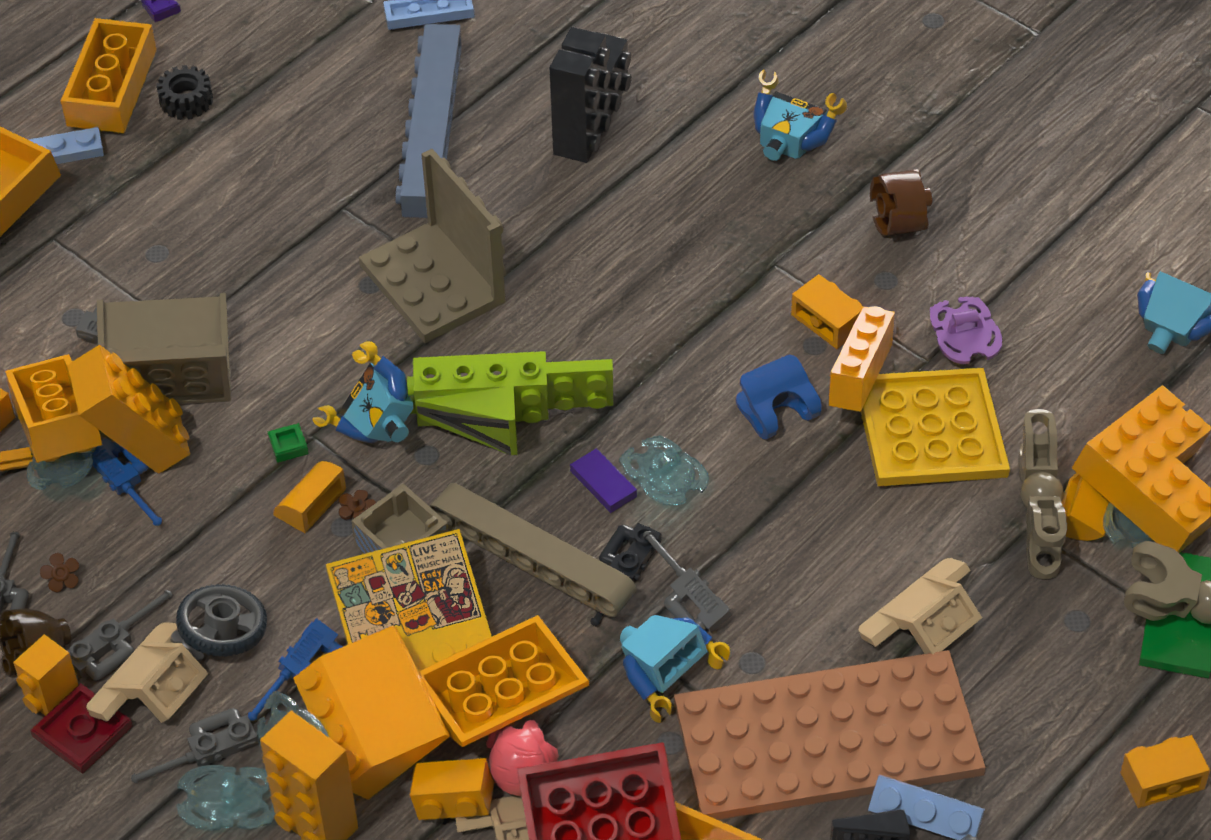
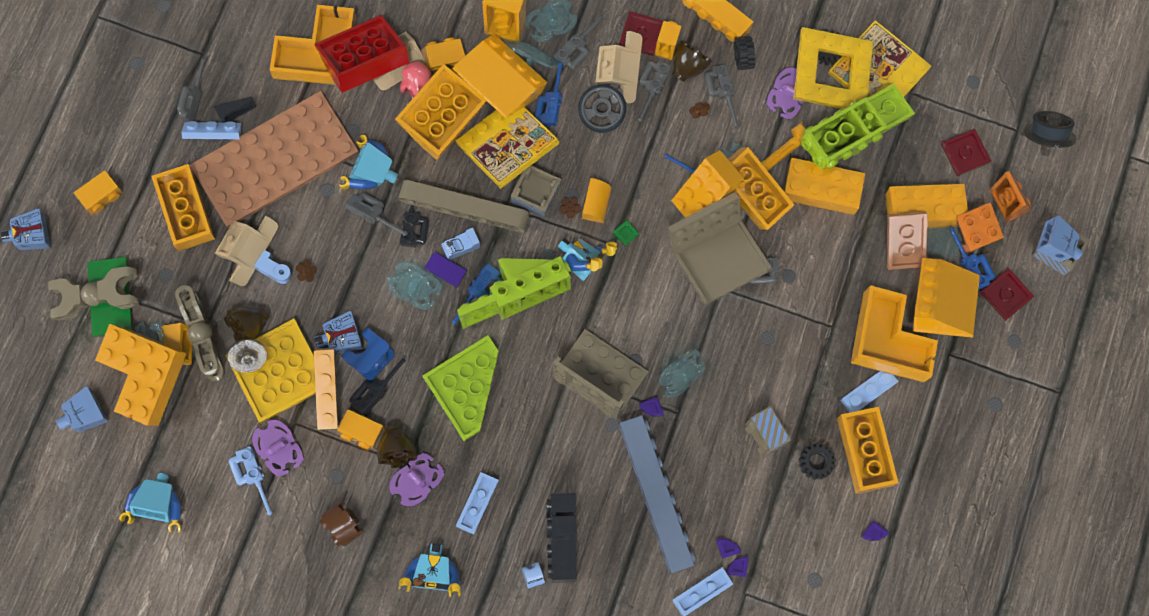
camera: 150 degrees right, 25 degrees up
(234, 127) = (767, 432): none -> dark tan container
(311, 228) = (679, 374): none -> clear light blue shield
(365, 24) = (738, 567): none -> dark purple tile
(367, 46) = (727, 548): none -> dark purple tile
(378, 221) = (652, 407): none -> dark purple tile
(557, 434) = (479, 284): none -> blue piece
(561, 501) = (461, 244): none -> light blue leg
(646, 320) = (464, 385): none -> lime plate
(650, 77) = (533, 575): none -> light blue leg
(691, 183) = (477, 503): none -> light blue plate
(770, 232) = (415, 480): none -> medium lavender shield
(784, 265) = (395, 447): none -> dark brown piece
(809, 338) = (375, 393): none -> black piece
(812, 437) = (340, 334): none -> medium blue torso
(835, 544) = (306, 271): none -> reddish brown plant
(890, 561) = (275, 271): none -> light blue leg
(959, 492) = (246, 321): none -> dark brown piece
(973, 435) = (247, 355): none -> clear smoke piece
(1014, 313) = (253, 472): none -> light blue piece
(1016, 691) = (183, 207): none -> light orange brick

